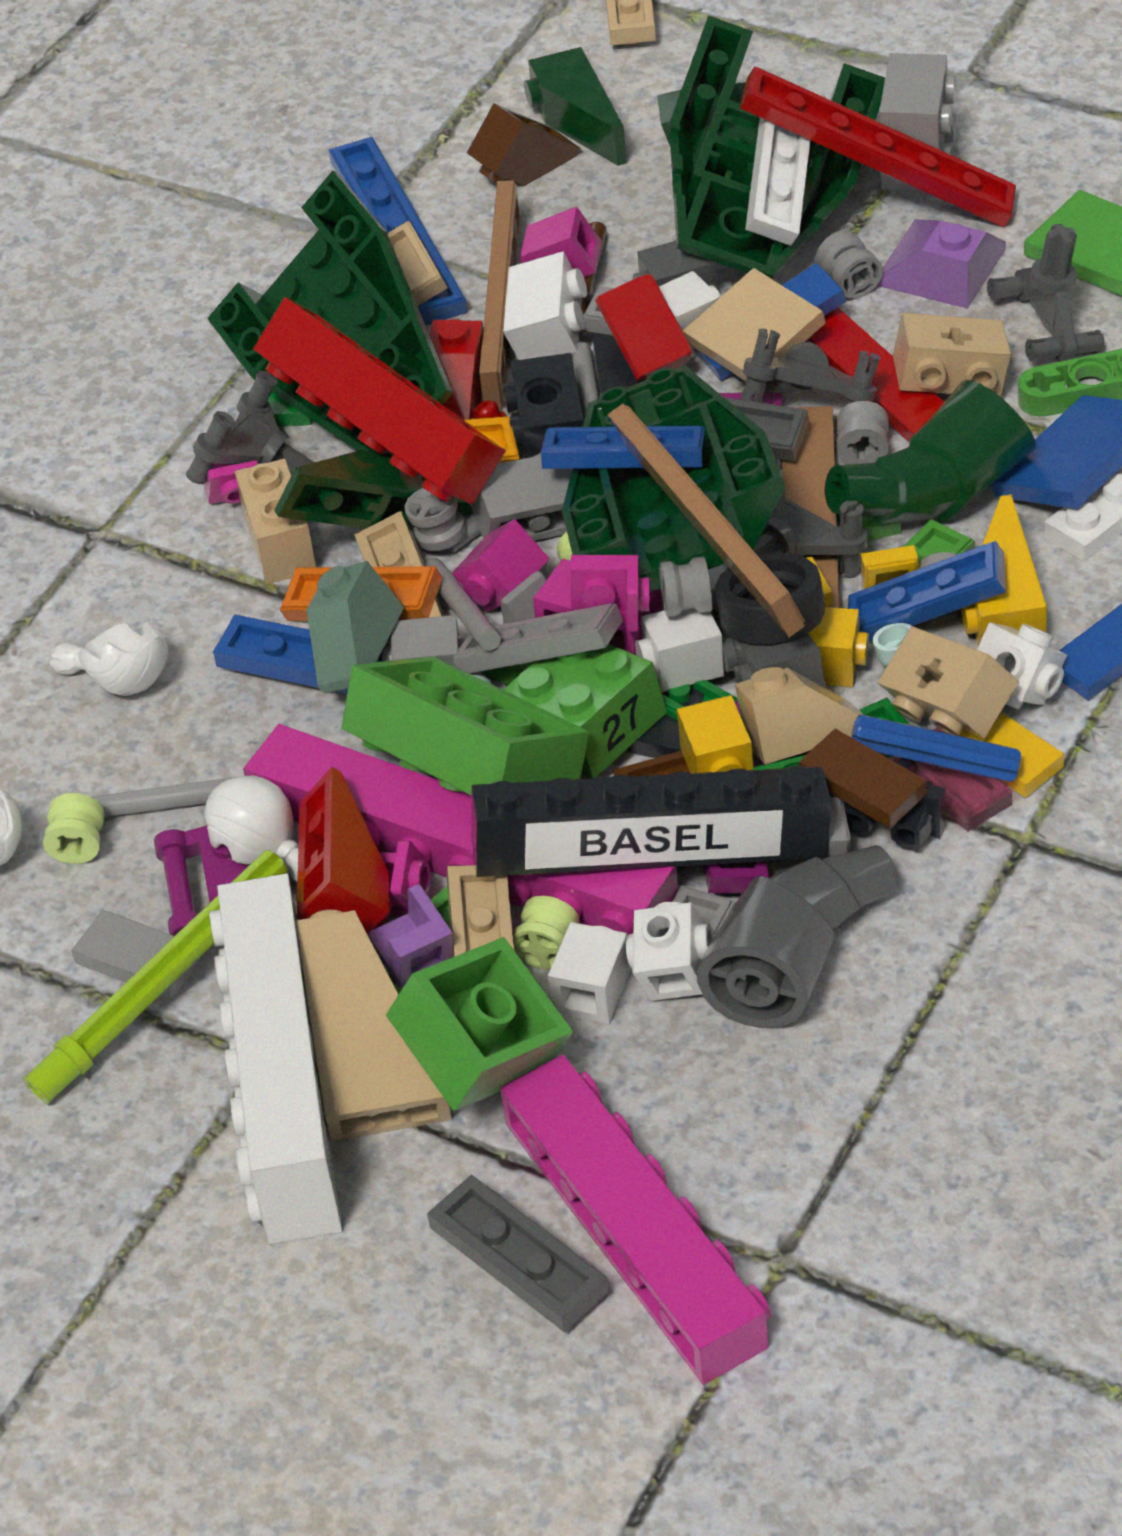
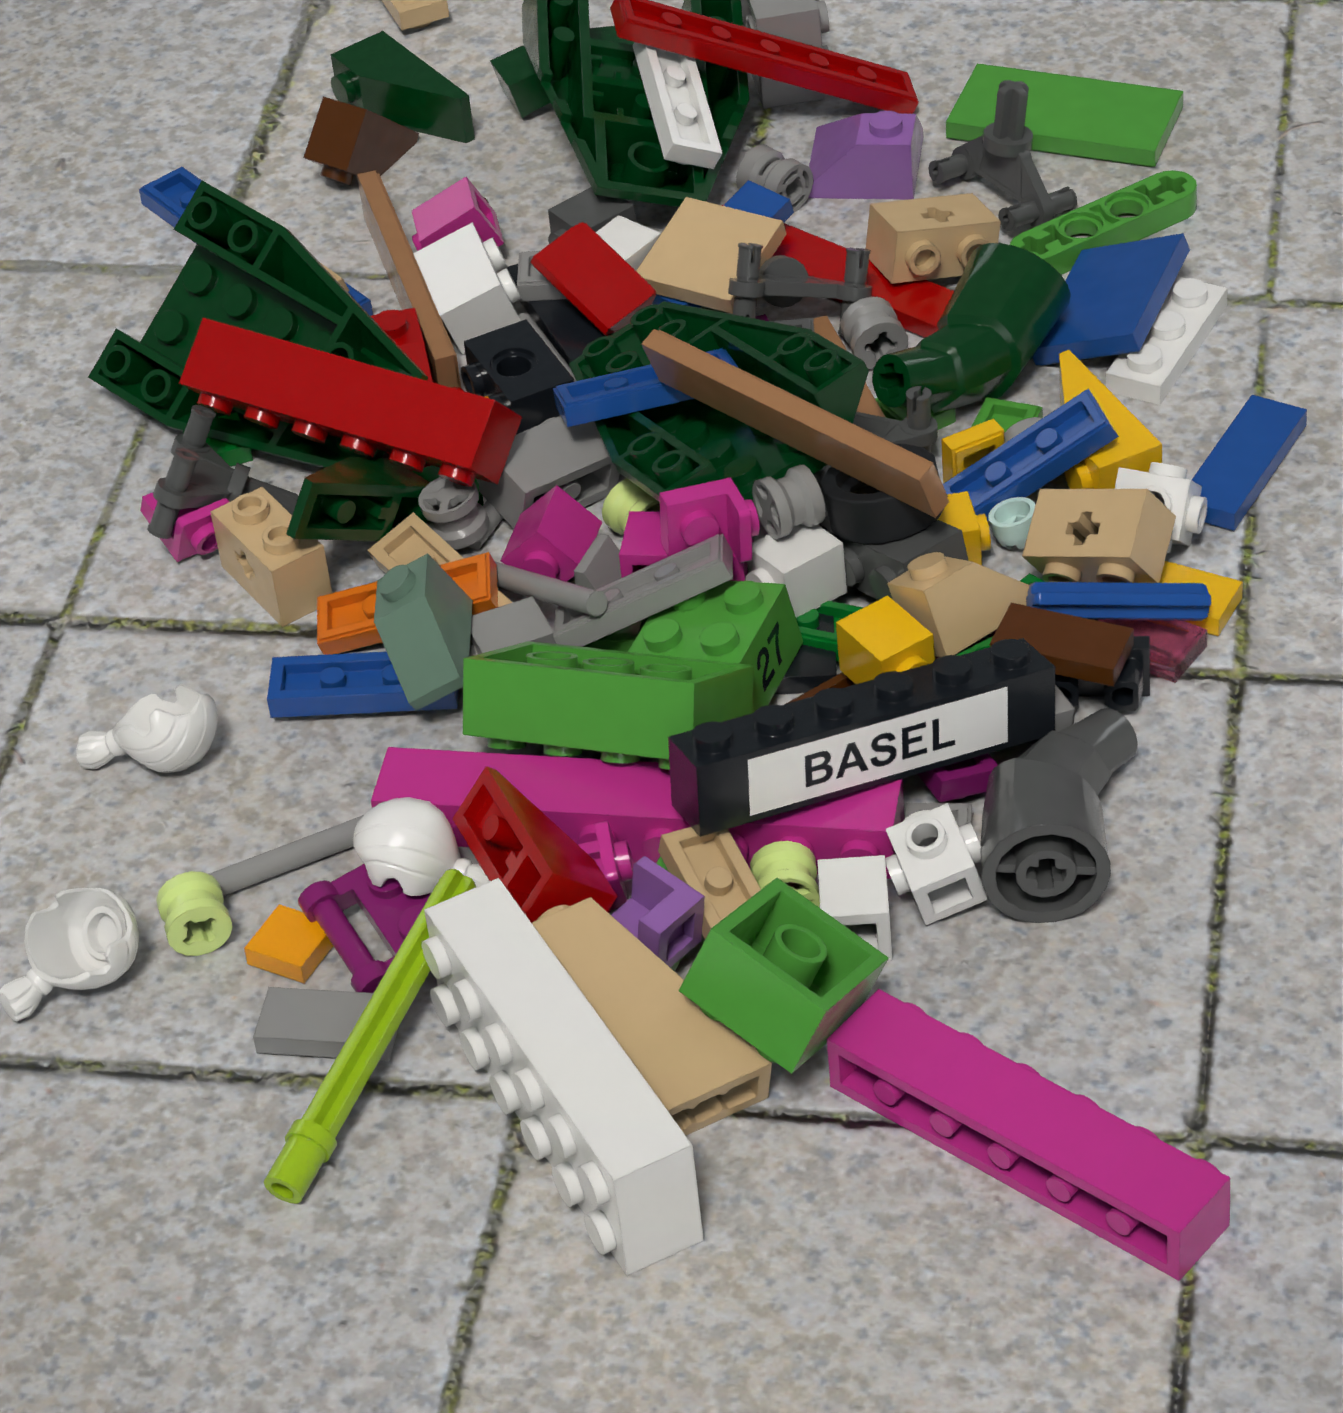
camera: 20 degrees left, 5 degrees down
(136, 875) = (288, 945): none -> light orange tile
(518, 1253) = (918, 1202): dark grey plate -> none

